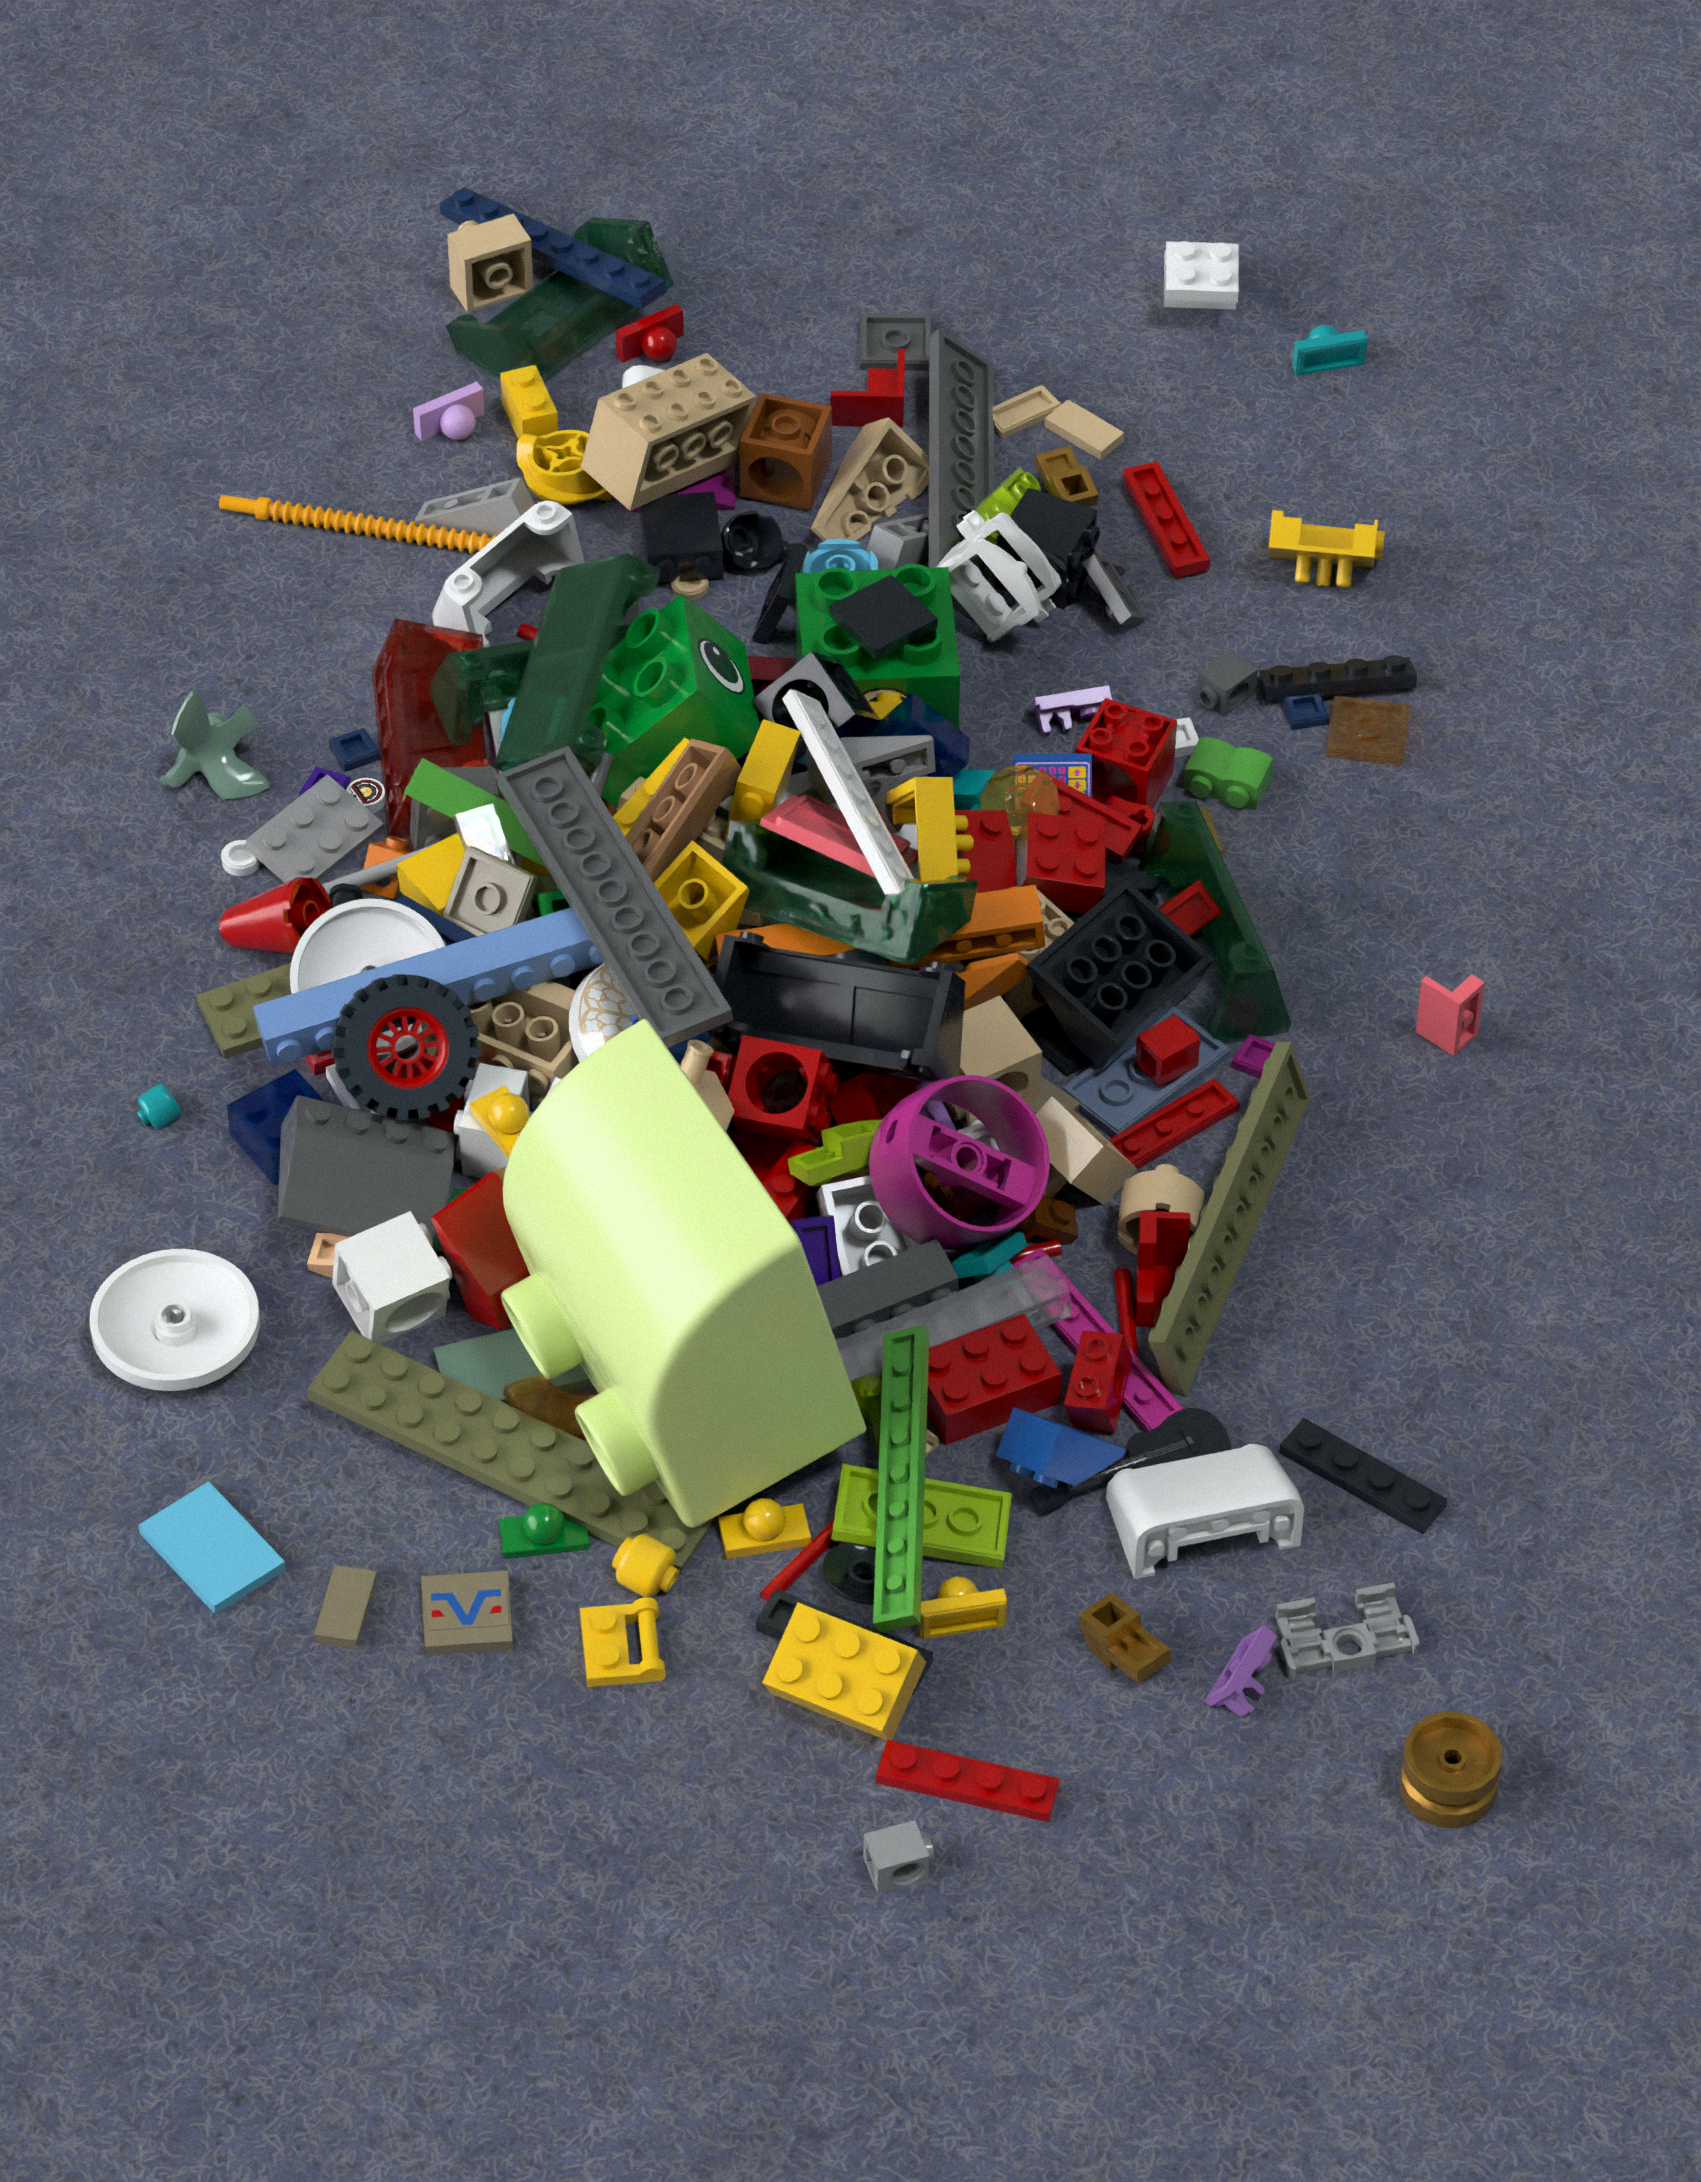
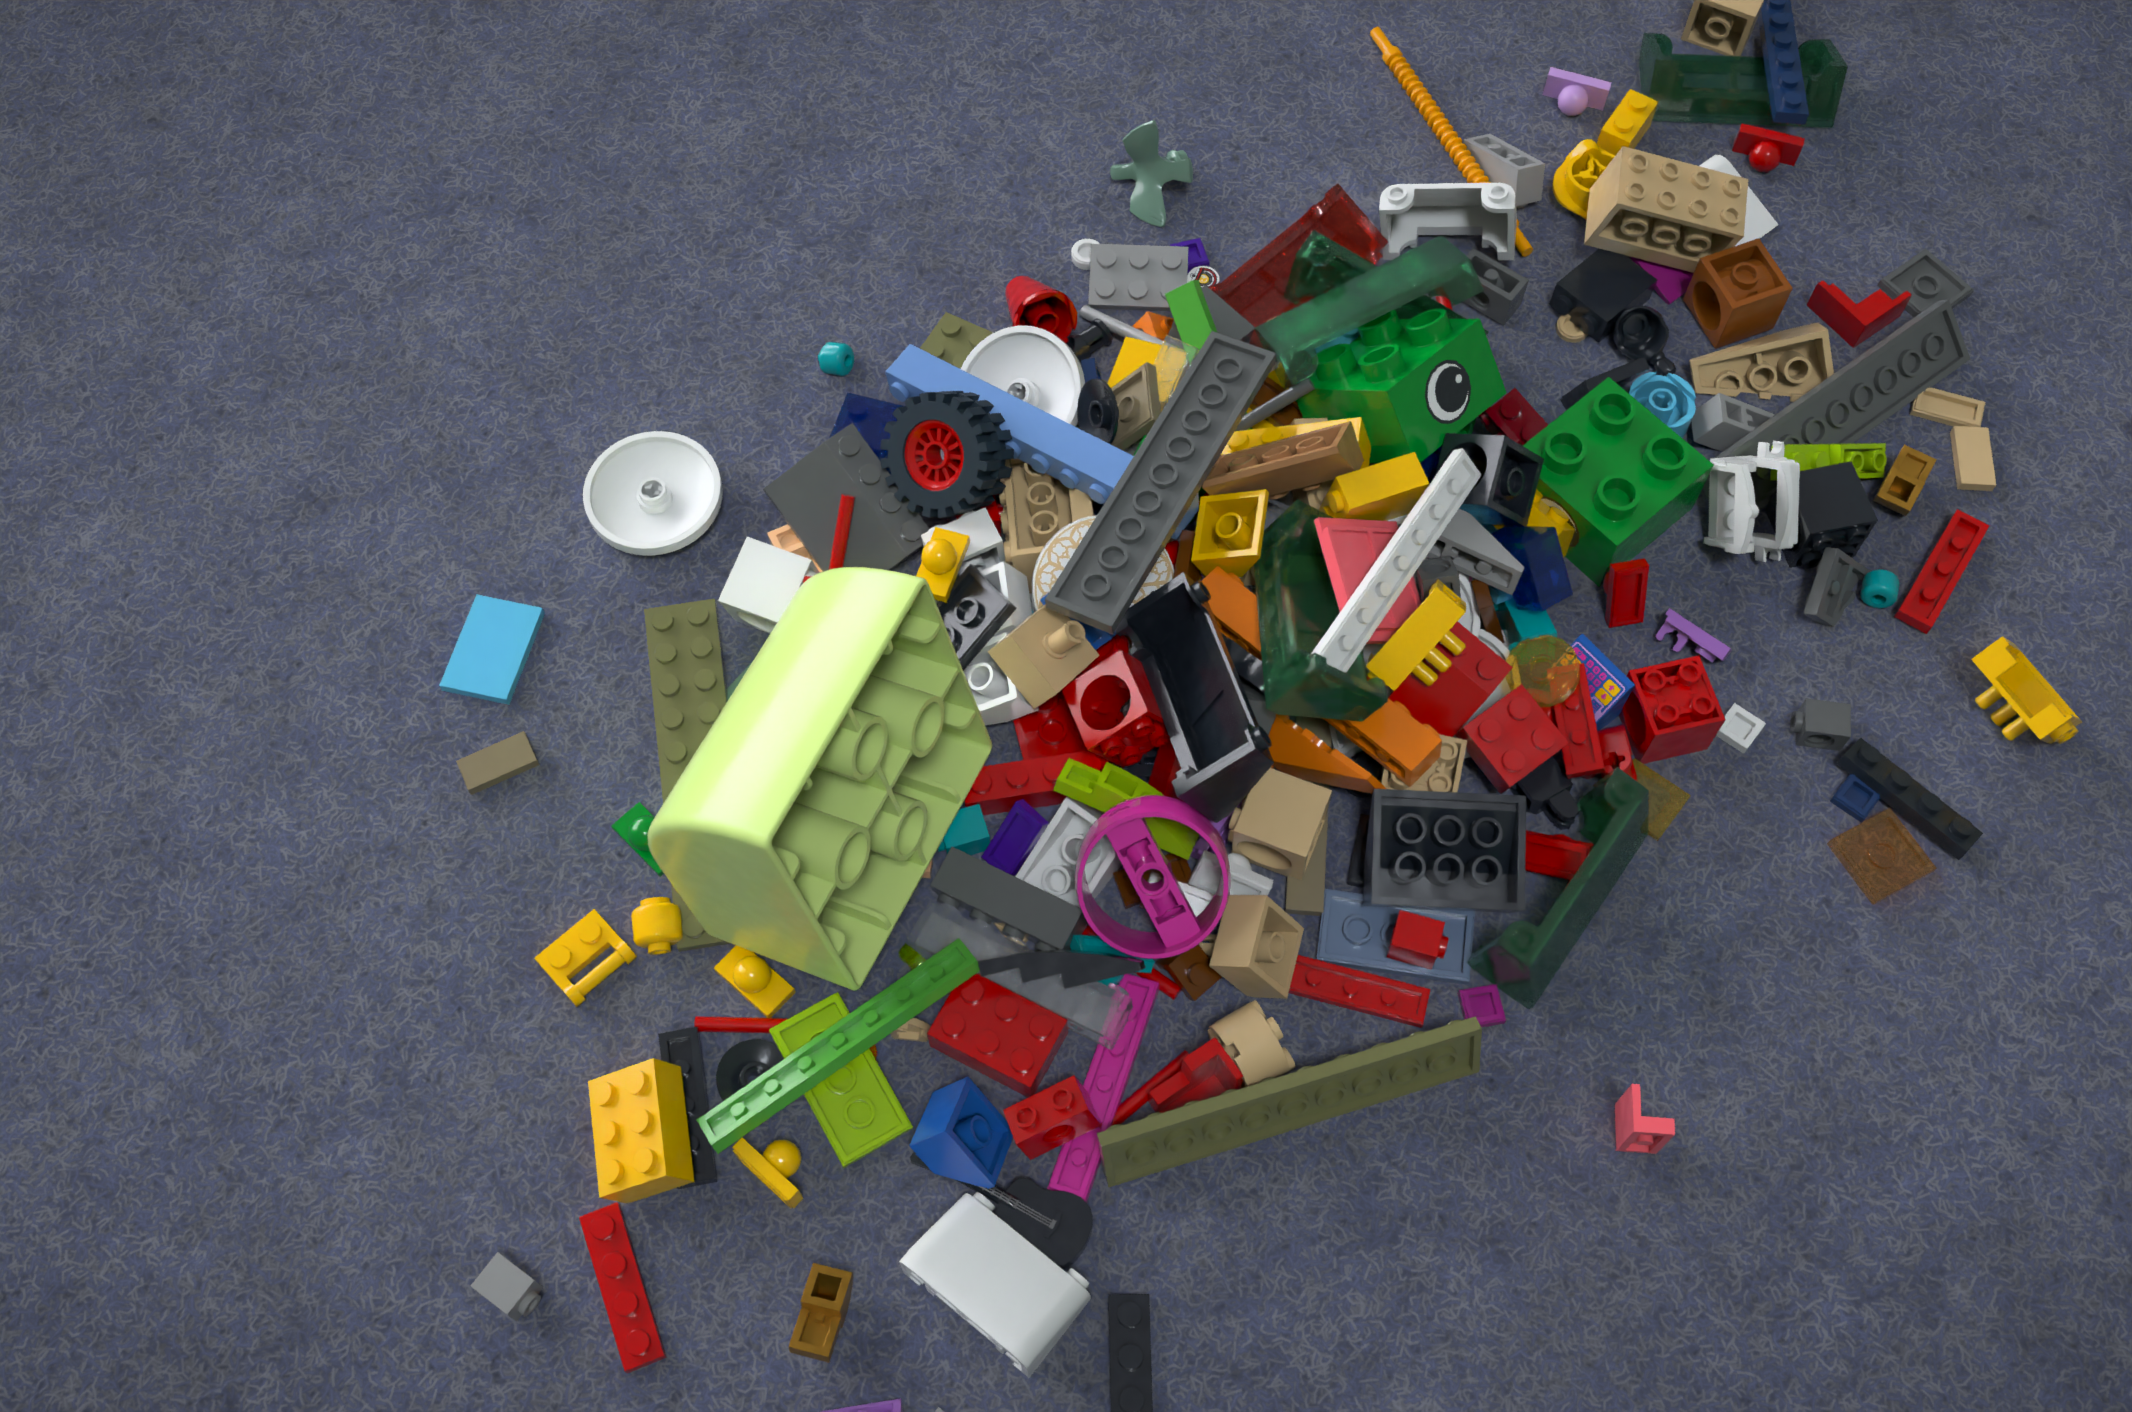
camera: 55 degrees right, 15 degrees up
(354, 749) = (1237, 247): dark blue tile -> none
(382, 1183) = (842, 531): none -> red bar
(455, 912) = (1098, 410): none -> black dish
(466, 1612) = (544, 840): dark tan tile -> none
(883, 617) = (1609, 458): black tile -> none
(988, 1266) = (1073, 965): none -> black slope
(989, 714) = (1626, 592): none -> red tile
(1143, 566) = (1880, 588): none -> teal piece
(1228, 773) = (1735, 788): bright green brick -> none

